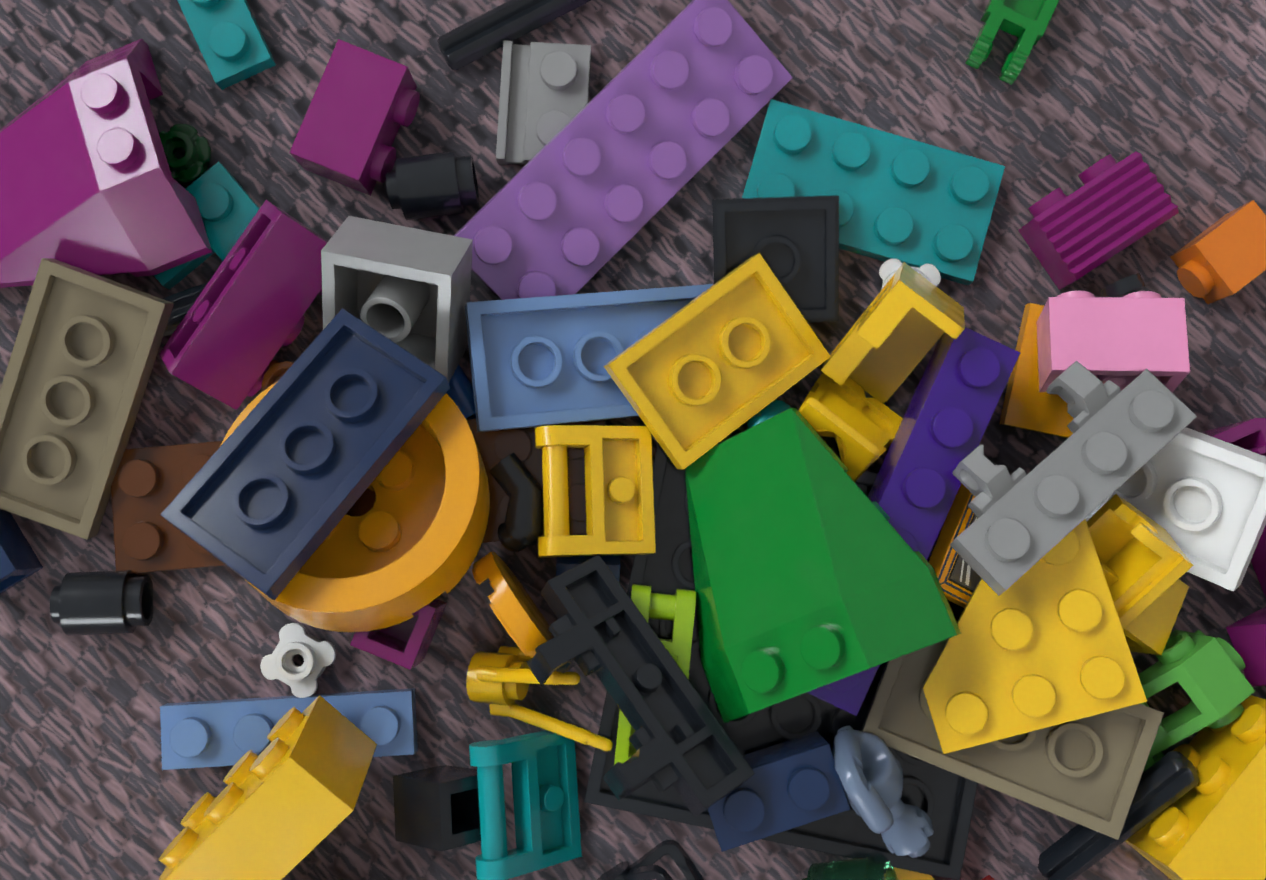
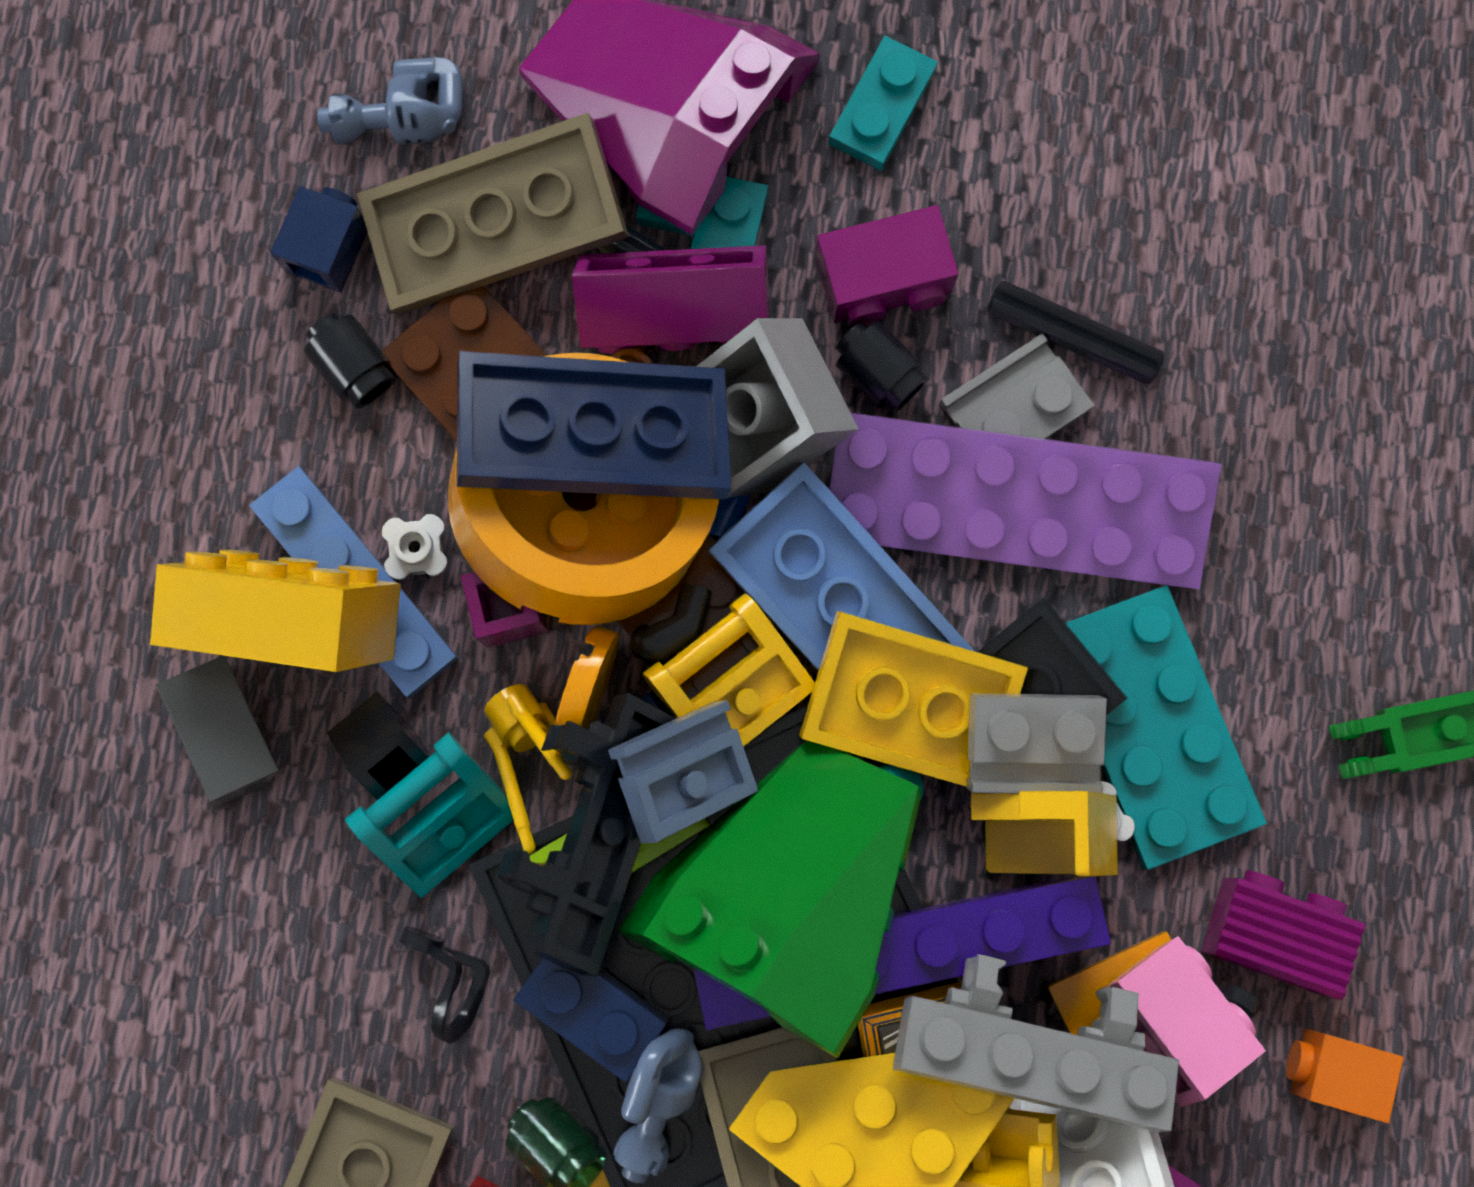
camera: 55 degrees right, 5 degrees down
(196, 155) = (763, 162): dark green plate -> none
(642, 584) = (683, 772): none -> sand blue plate
(821, 291) = (1035, 742): none -> light grey plate
(858, 423) = (951, 854): yellow piece -> none

